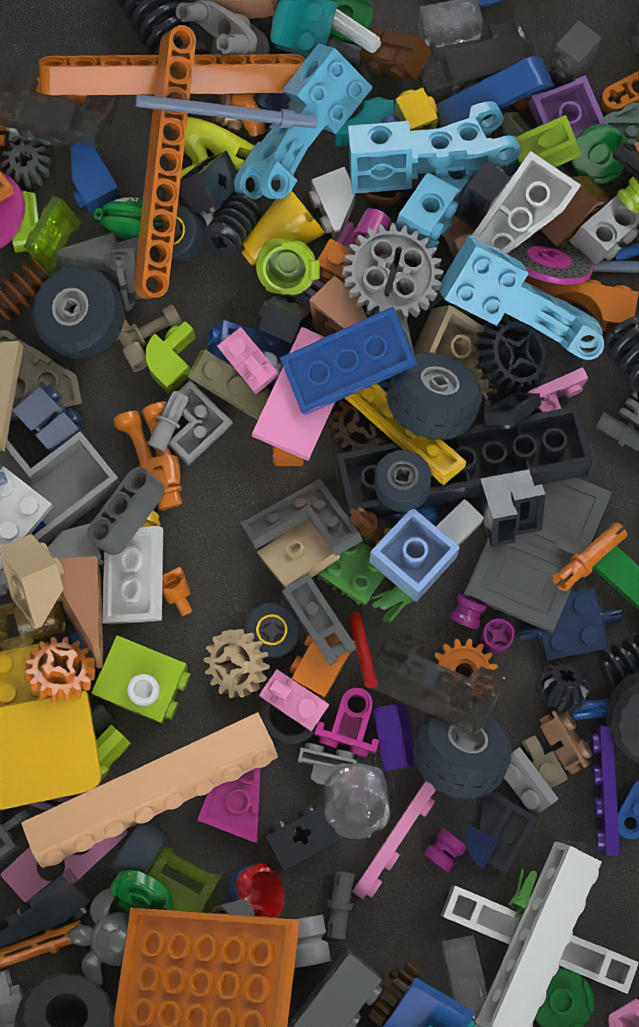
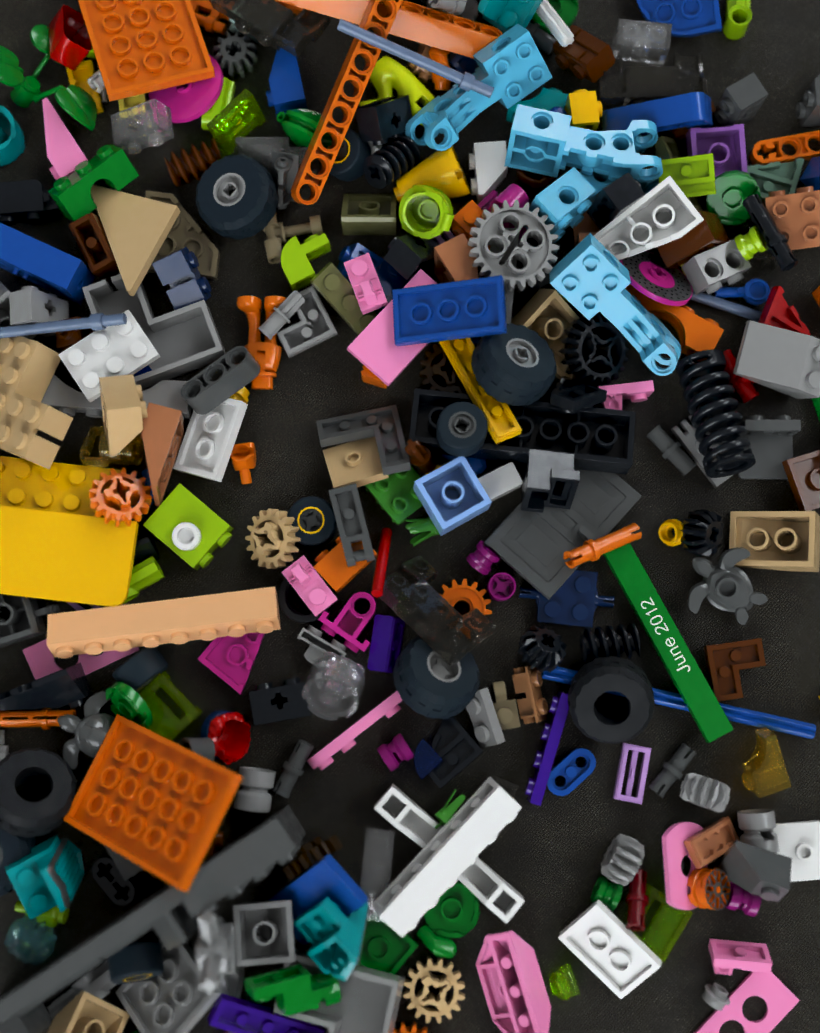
camera: 20 degrees right, 5 degrees up
(225, 287) = (369, 214): none -> olive slope

